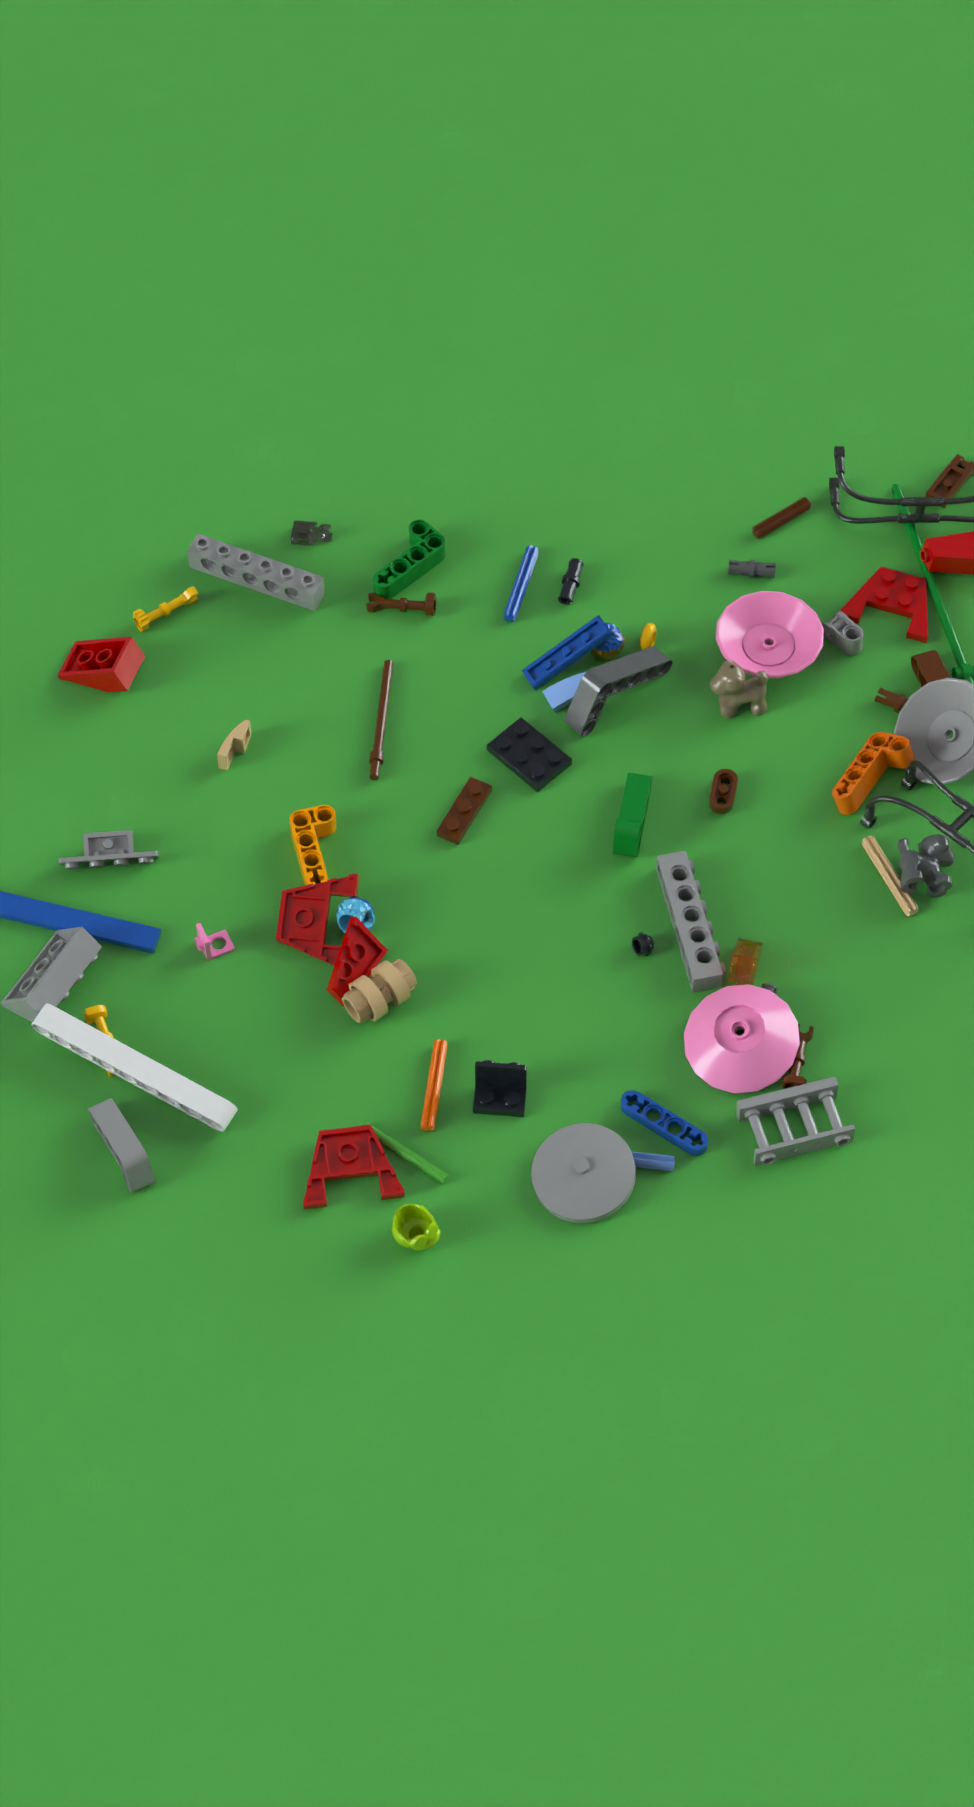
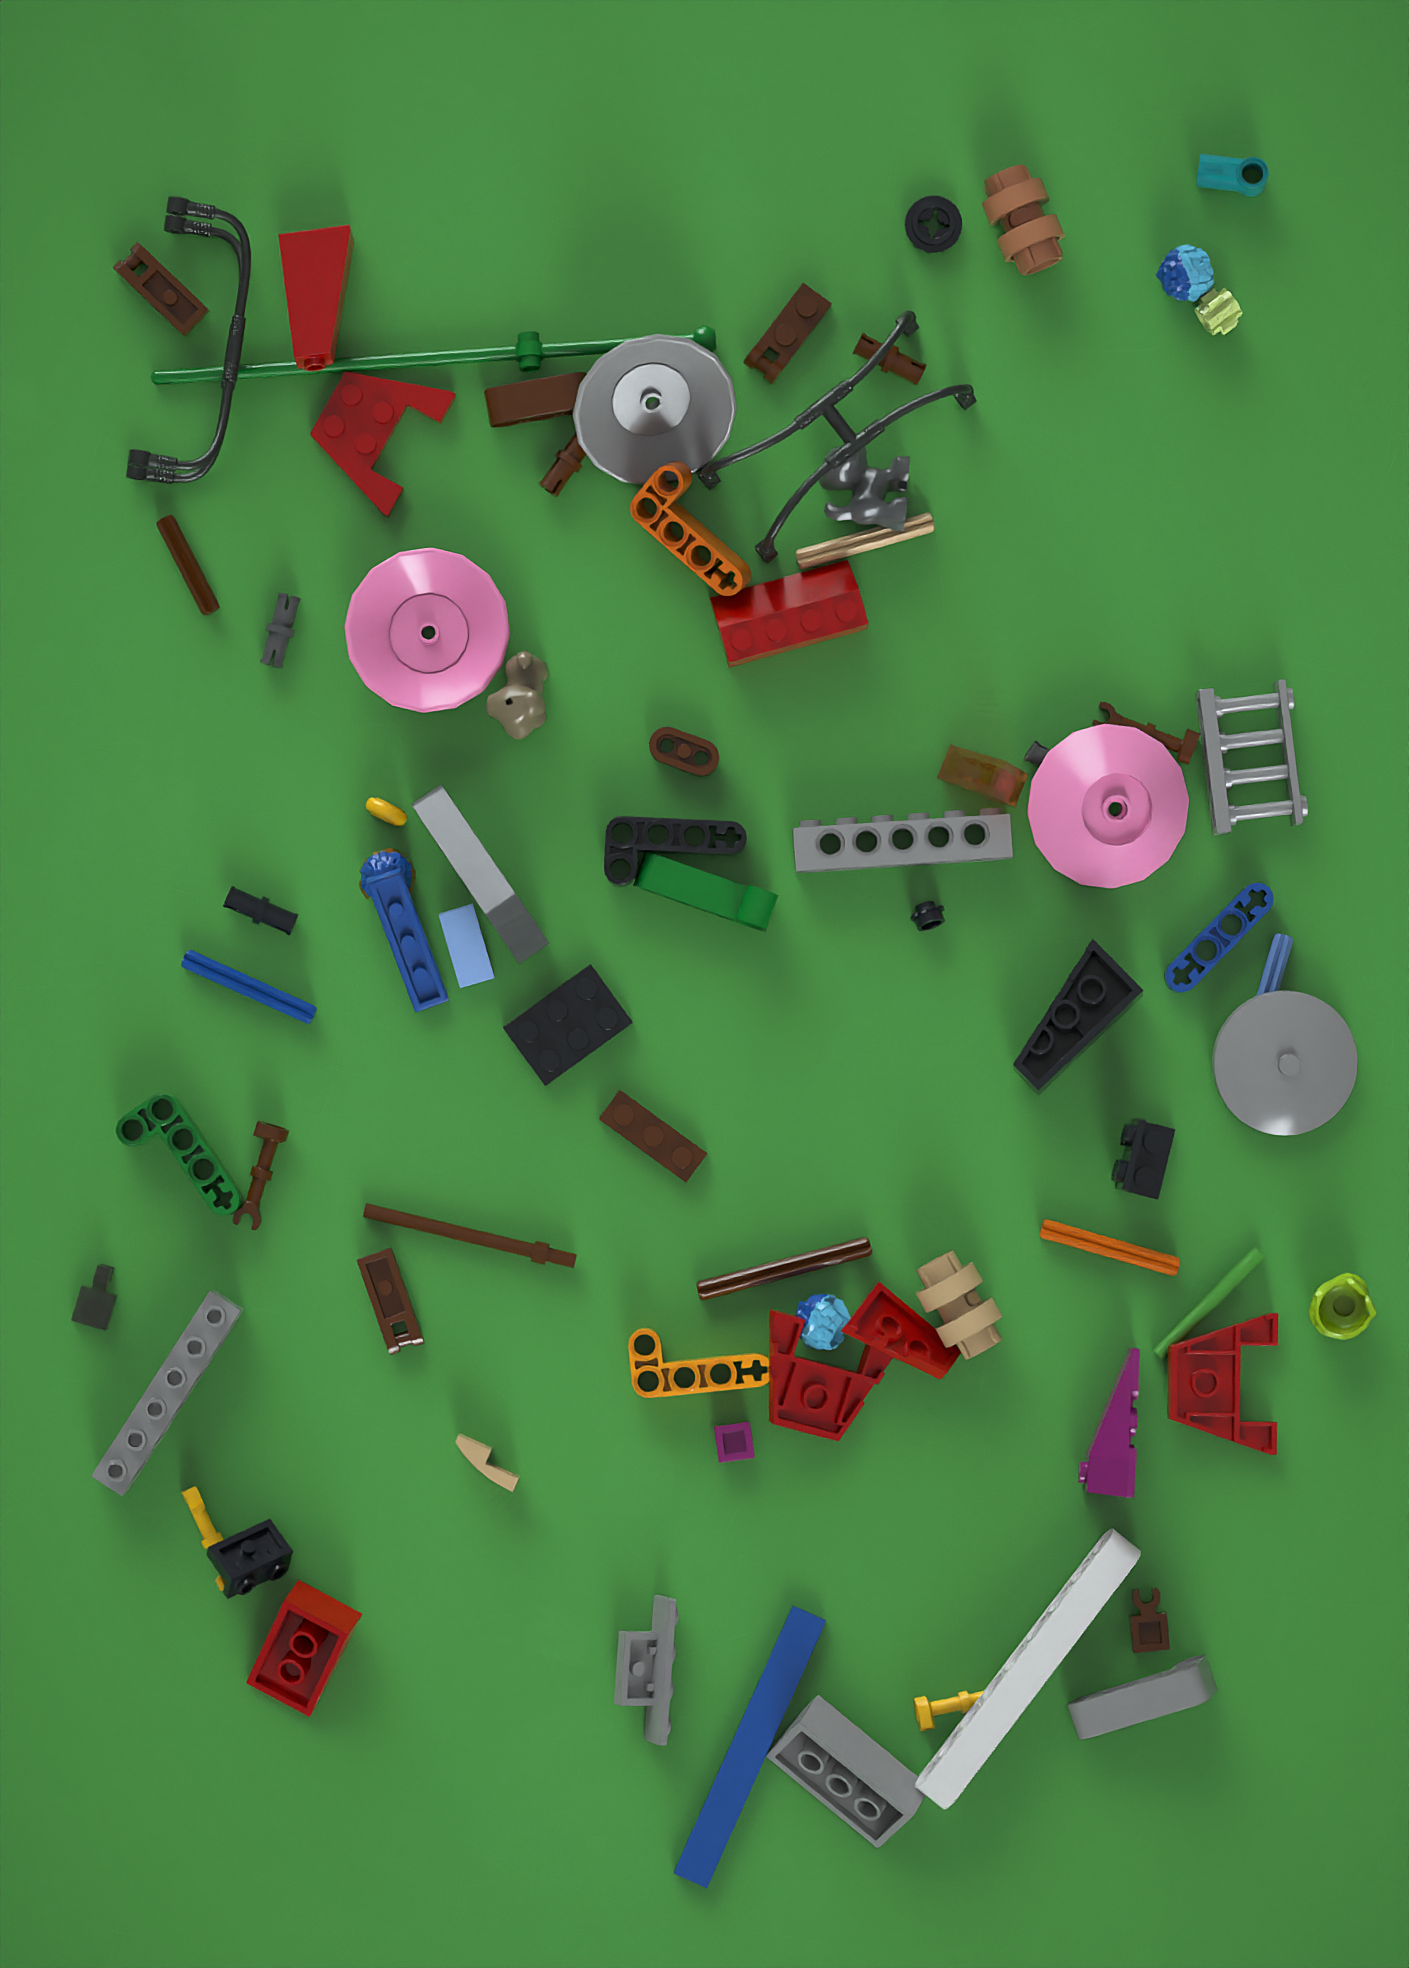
camera: 85 degrees left, 30 degrees up
(155, 625) = (251, 1558): none -> black bracket
(170, 1143) = (1148, 1628): none -> reddish brown plate
(204, 943) = (830, 1544): bright pink bracket -> none
(267, 880) = (734, 1442): none -> magenta plate
(298, 1102) = (1110, 1455): none -> magenta wedge
(332, 681) = (390, 1299): none -> reddish brown plate
(388, 895) = (784, 1268): none -> reddish brown axle
(587, 1035) = (1080, 1014): none -> black wedge
(663, 793) = (674, 845): none -> black beam
(827, 837) = (789, 613): none -> red slope
(844, 634) = (425, 518): light grey piece -> none

